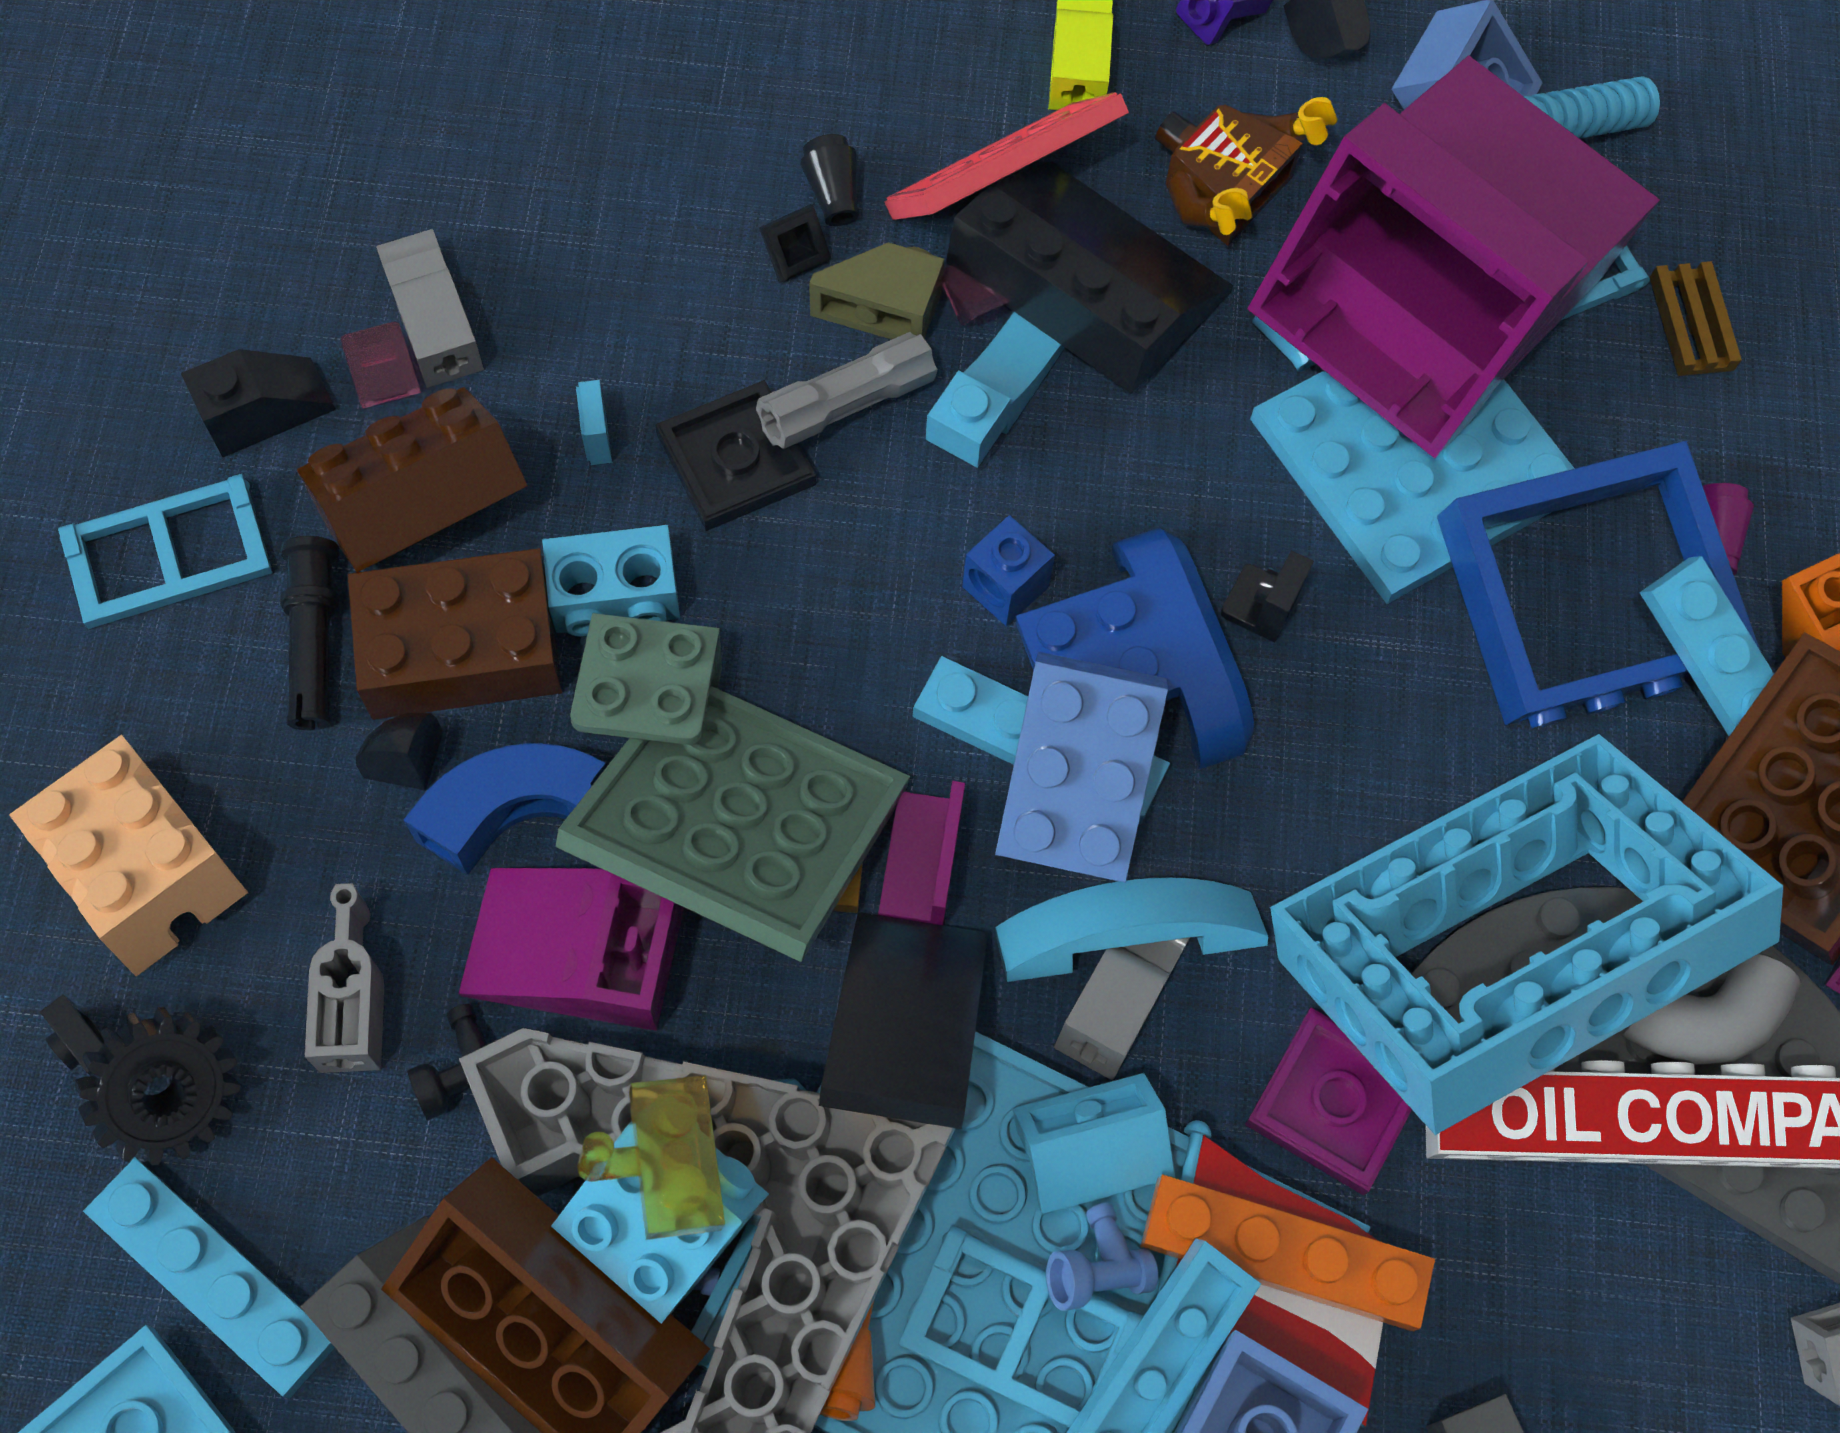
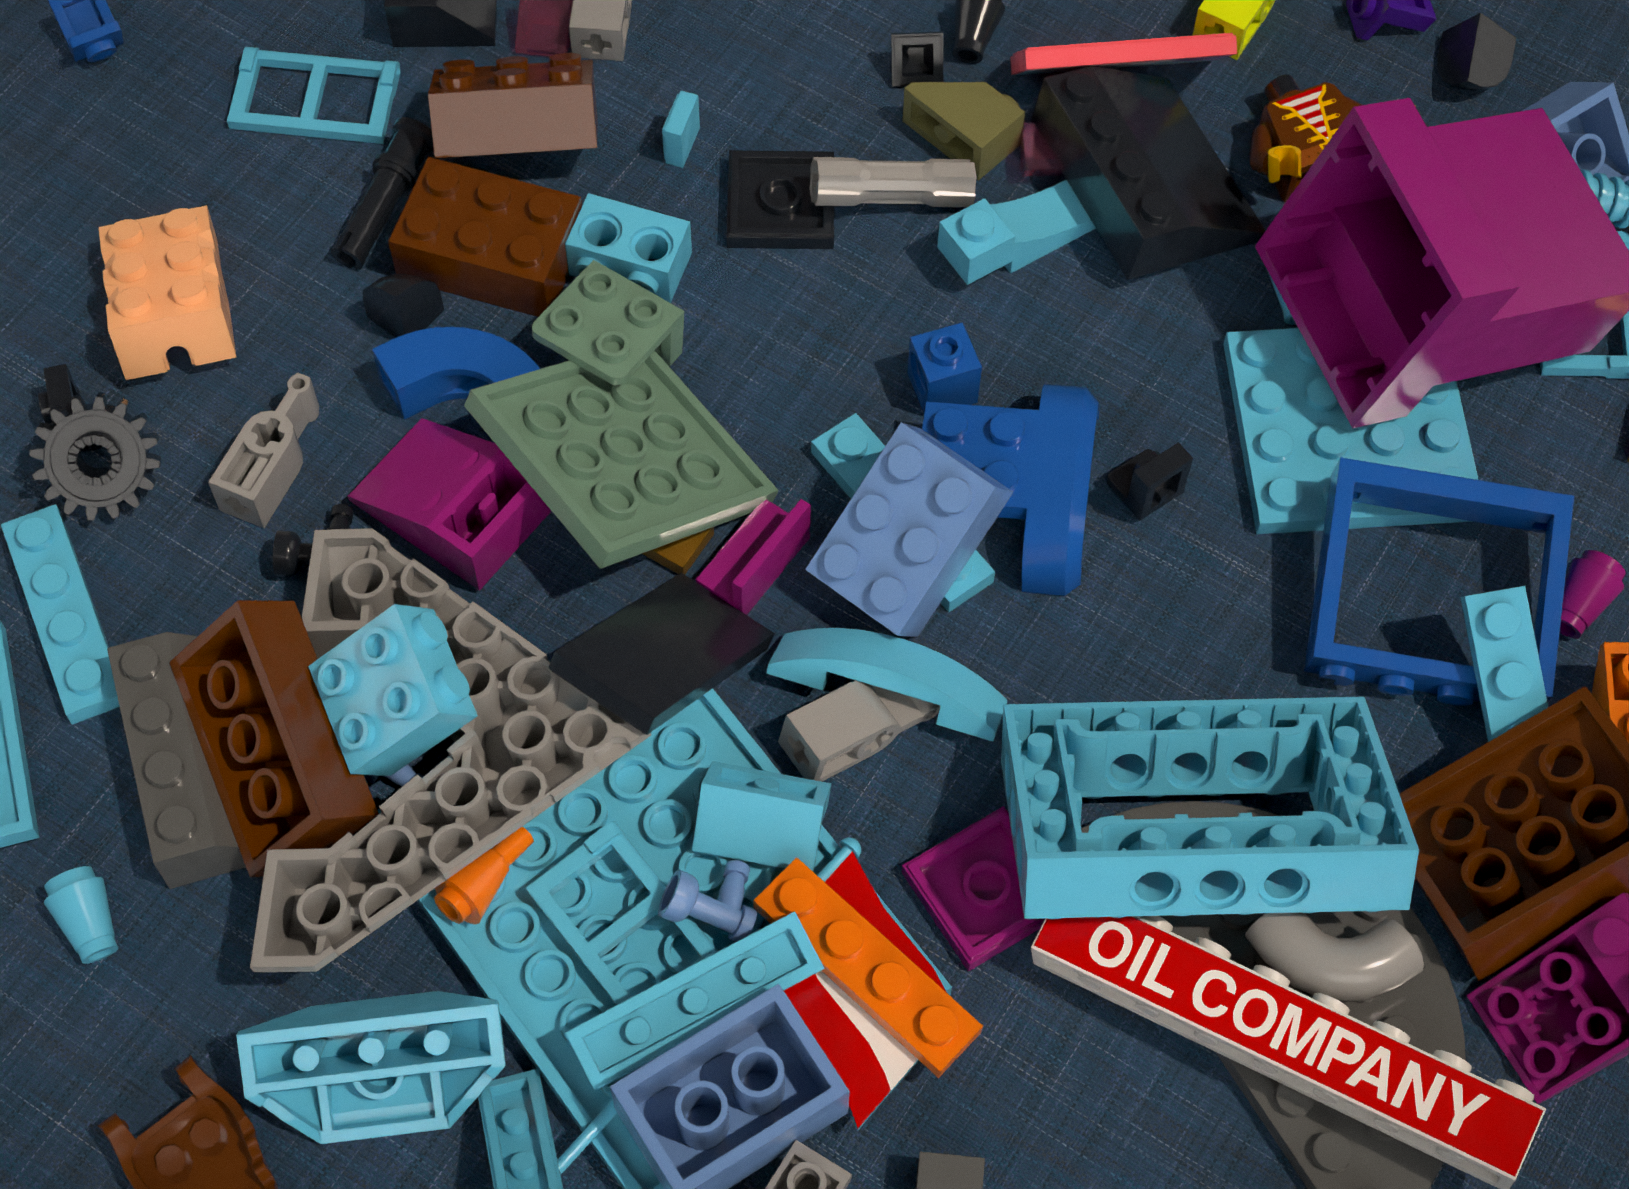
camera: 30 degrees right, 5 degrees down
(670, 1156) = (407, 640): clear yellow plate -> none

